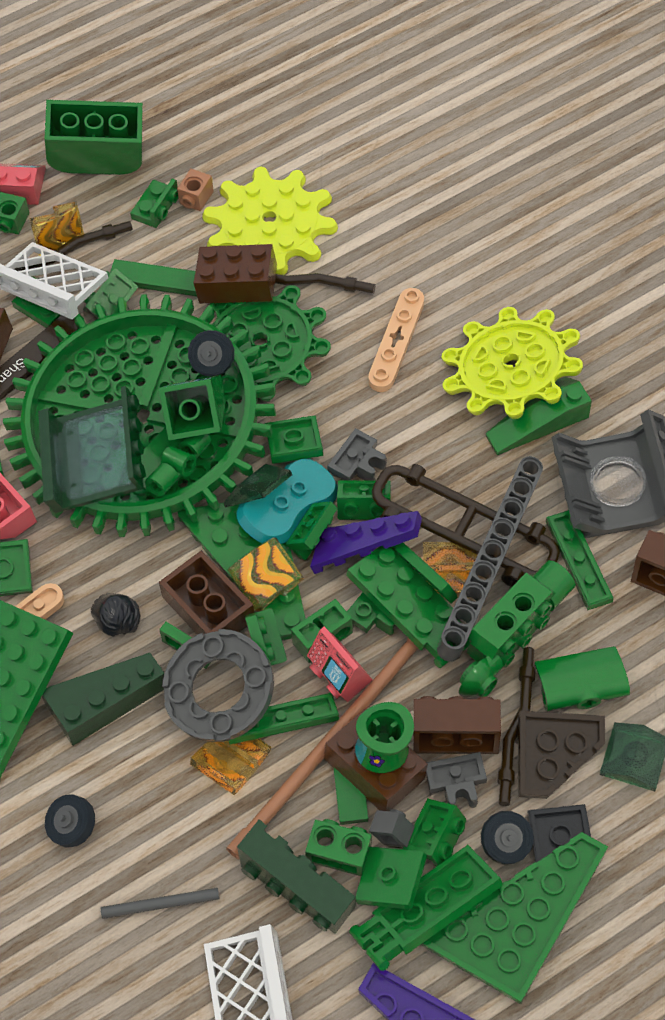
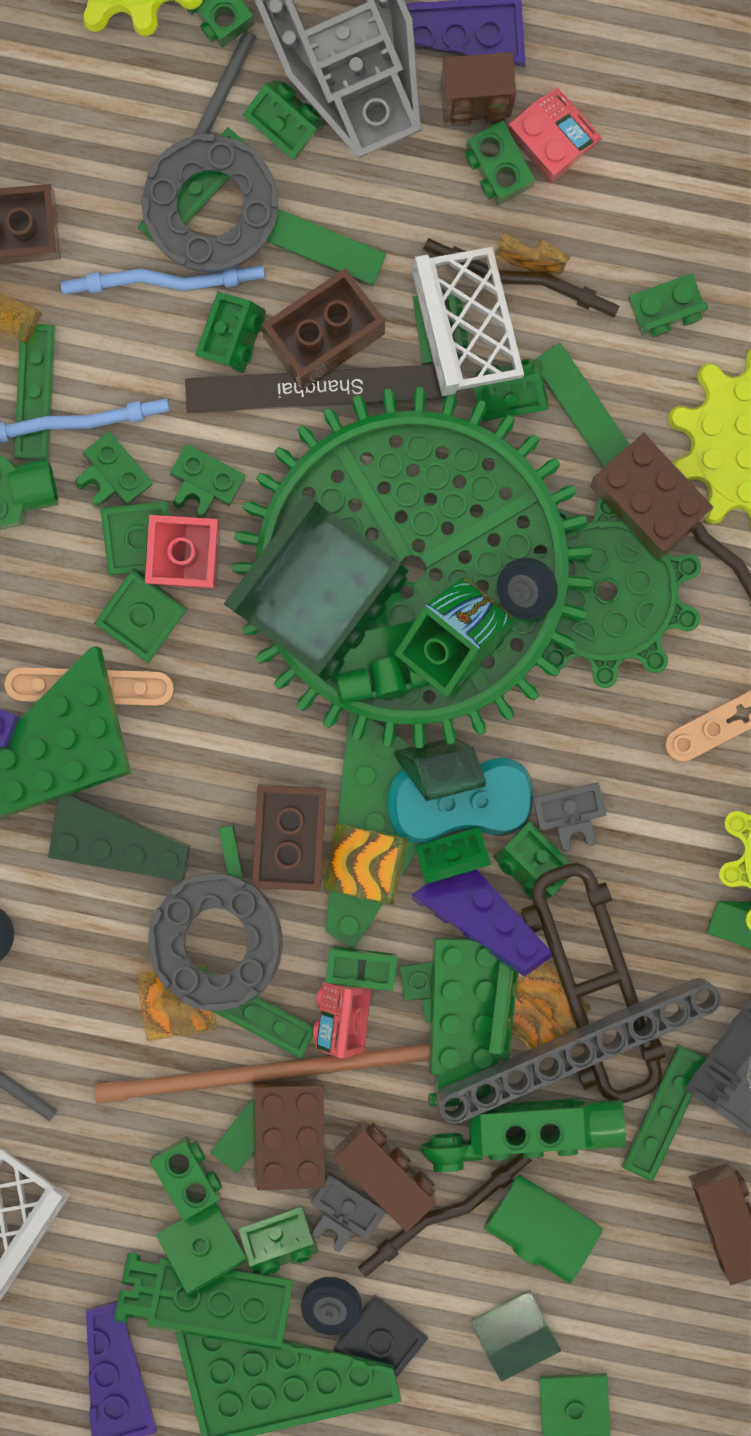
camera: 40 degrees right, 30 degrees up
(94, 136) = (673, 173): green brick -> none
(116, 614) = (199, 765): black hair -> none
(195, 189) = (732, 325): nougat brick -> none
(265, 633) = (306, 926): green bracket -> none
(294, 879) = (122, 1174): dark green wedge -> none
(295, 439) = (532, 737): green plate -> none
(384, 737) = (299, 1147): green hat -> none
(392, 828) = (244, 1206): dark grey plate -> none
(554, 749) = (452, 1269): dark brown plate -> none

